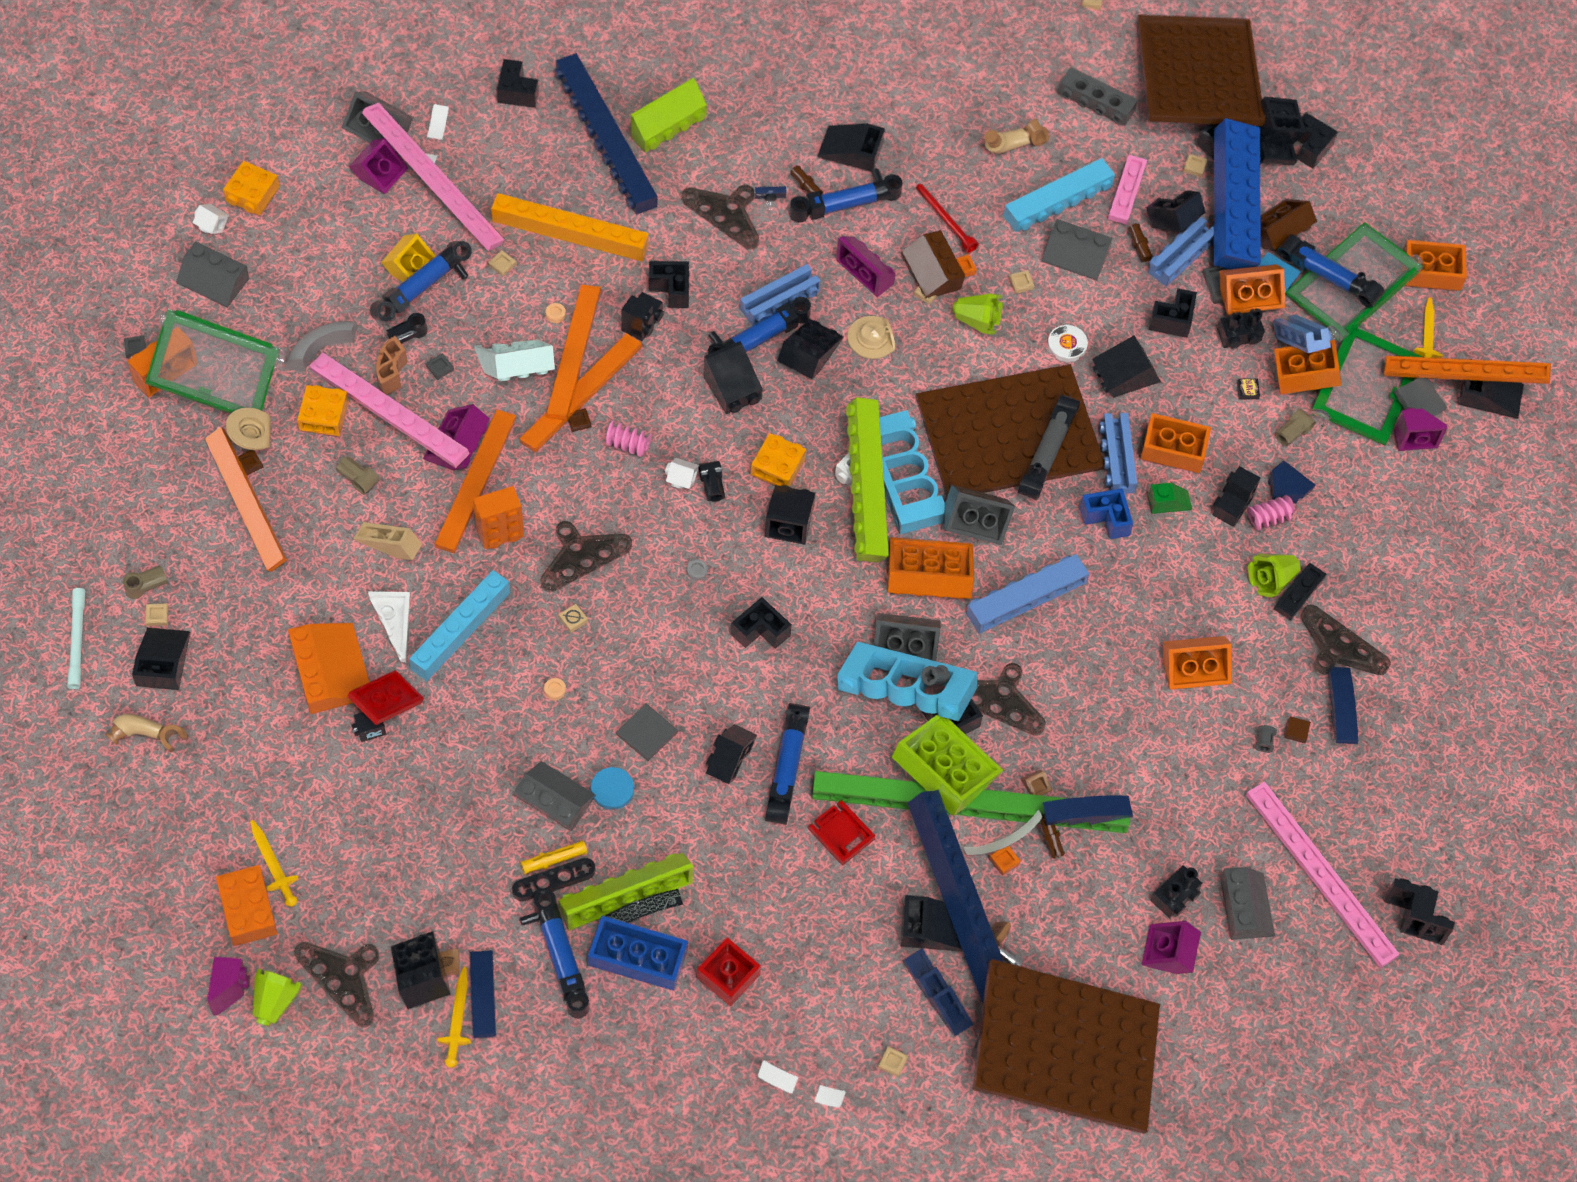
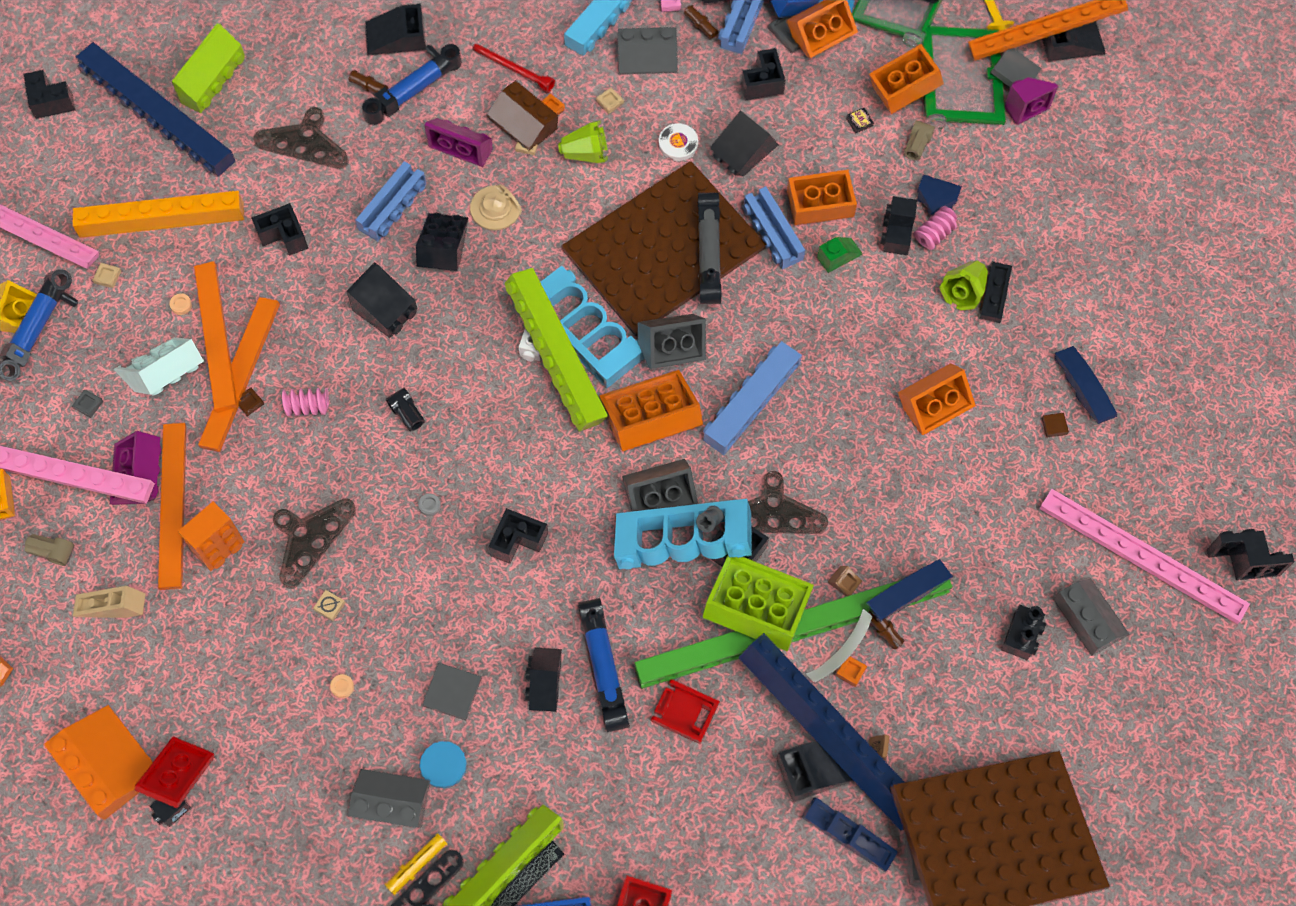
camera: 20 degrees left, 5 degrees up
(388, 365) = (34, 422): nougat brick -> none
(394, 615) = (147, 678): white wing -> none
(407, 329) = (38, 380): black piece -> none
(459, 625) = (218, 663): medium azure brick -> none
(640, 315) = (265, 274): black brick -> none
(681, 473) = (373, 415): white brick -> none
(770, 195) = (339, 108): dark blue piece -> none
(778, 461) = (461, 365): light orange brick -> none
(784, 319) = (405, 223): piece -> none
(789, 514) = (495, 412): black slope -> none
(1014, 959) = (908, 768): flat silver piece -> none
(1108, 508) = (791, 283): blue brick -> none
(1171, 947) = (1044, 689): magenta slope -> none
(1241, 329) = (829, 67): black brick -> none
(1265, 738) = (1032, 446): dark grey bush -> none
(1302, 333) = (889, 49): medium blue brick -> none
(1348, 652) = (1065, 331): clear smoke beam -> none

